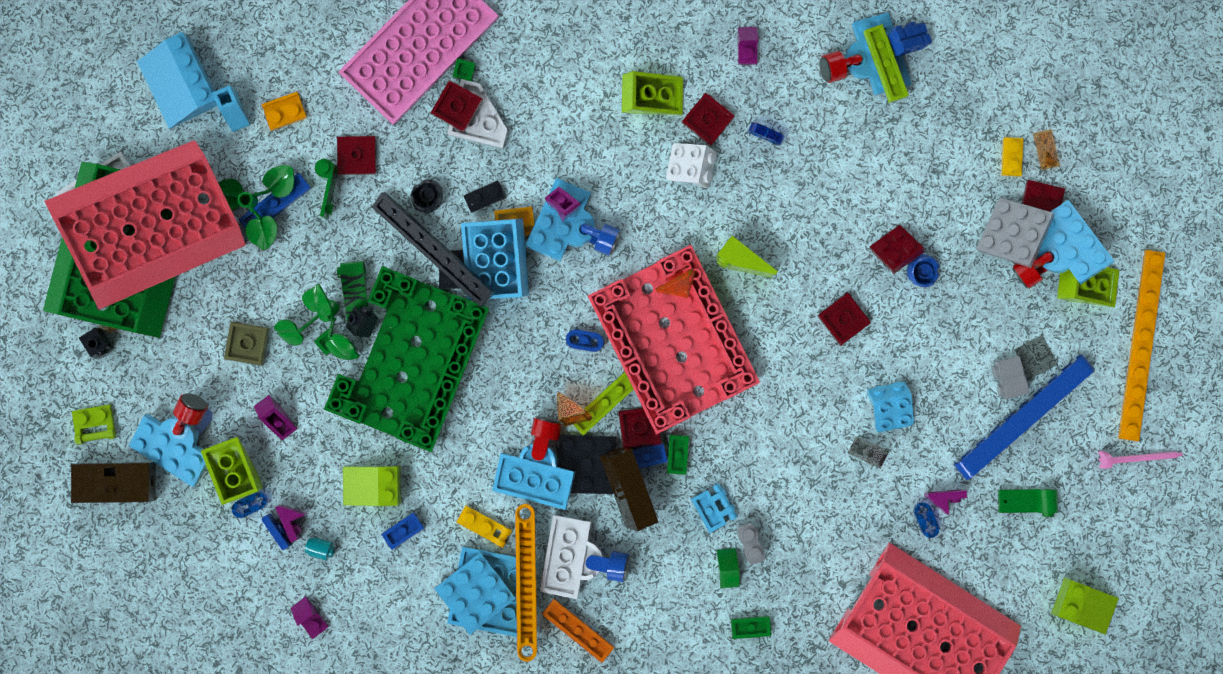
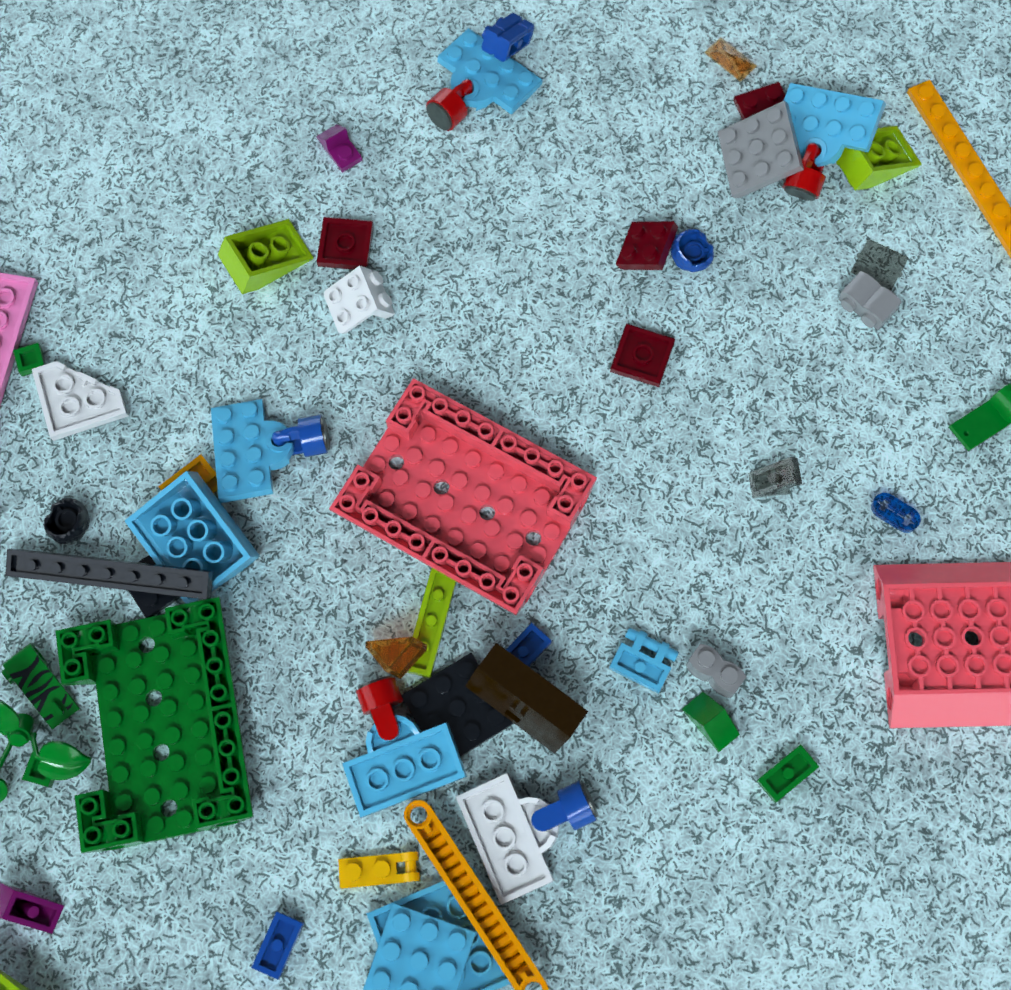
camera: 30 degrees left, 15 degrees down
(361, 321) = (69, 714): black brick -> none
(372, 486) = (202, 913): lime slope -> none
(456, 106) = (42, 398): dark red plate -> none
(484, 196) = (138, 481): black plate -> none
(562, 203) = (235, 422): magenta slope -> none
(578, 630) = (581, 923): orange plate -> none
(584, 340) = (360, 565): blue plate -> none
(637, 429) = (491, 624): dark red plate -> none
(677, 454) = (558, 625): green plate -> none
(678, 286) = (428, 427): clear orange slope -> none
(740, 258) = (485, 358): lime slope -> none
(766, 133) = (420, 219): clear blue beam -> none
(885, 63) = (500, 71): lime plate -> none
(891, 406) = (764, 413): medium azure bracket -> none
(941, 498) = (896, 476): magenta slope -> none
(1012, 157) = (700, 86): yellow plate -> none
(1025, 417) = (916, 334): blue beam -> none

